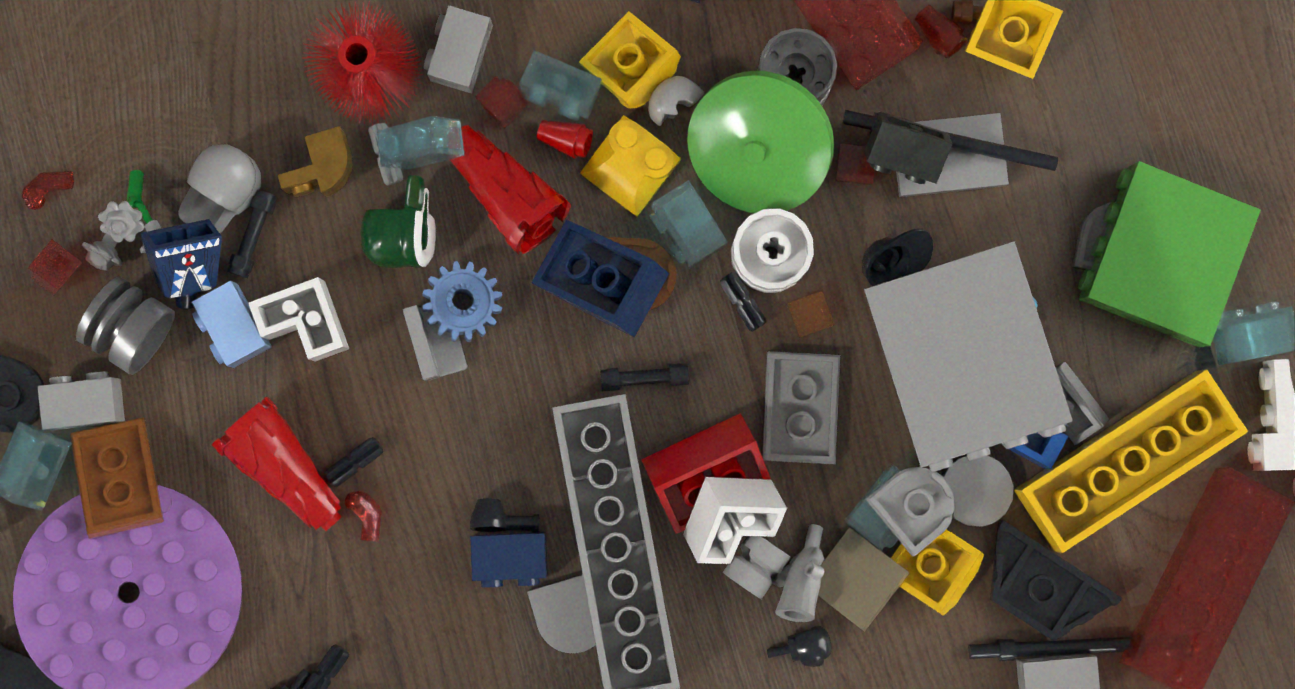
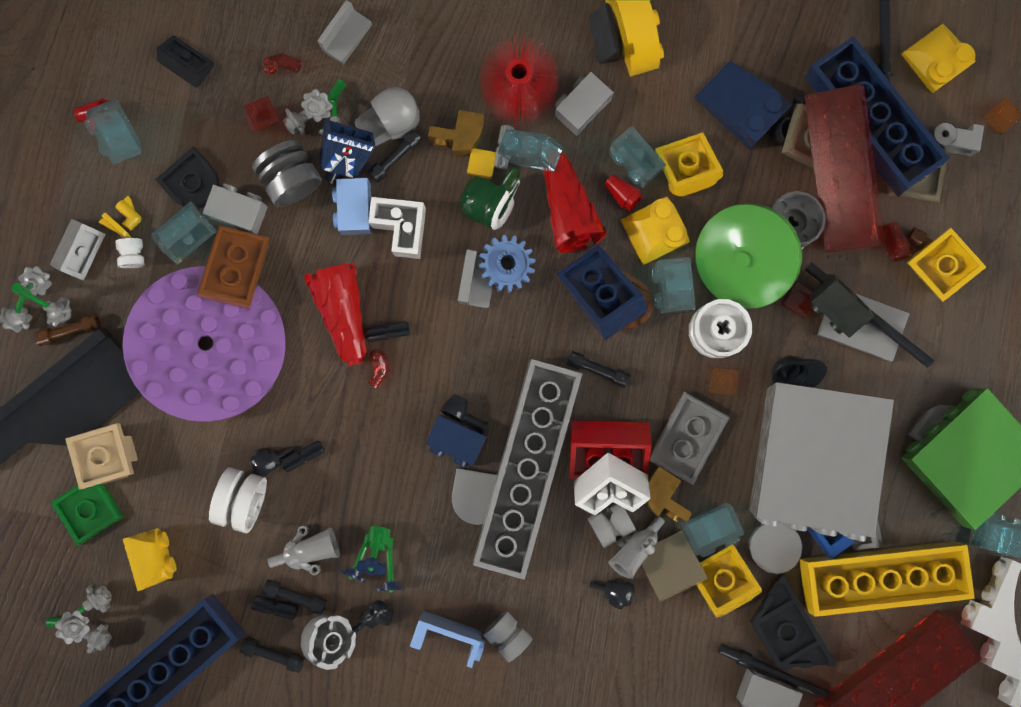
camera: 30 degrees right, 0 degrees up
(108, 108) = (344, 33): none -> light grey panel
(367, 188) = (481, 163): none -> yellow tile
(502, 101) = (594, 149): clear red brick -> none
(669, 94) = (704, 197): light grey hair -> none
(739, 294) = (685, 358): black piece -> none
(796, 489) = (661, 488): none -> pearl gold brick
(914, 506) = (732, 538): light grey tile -> none

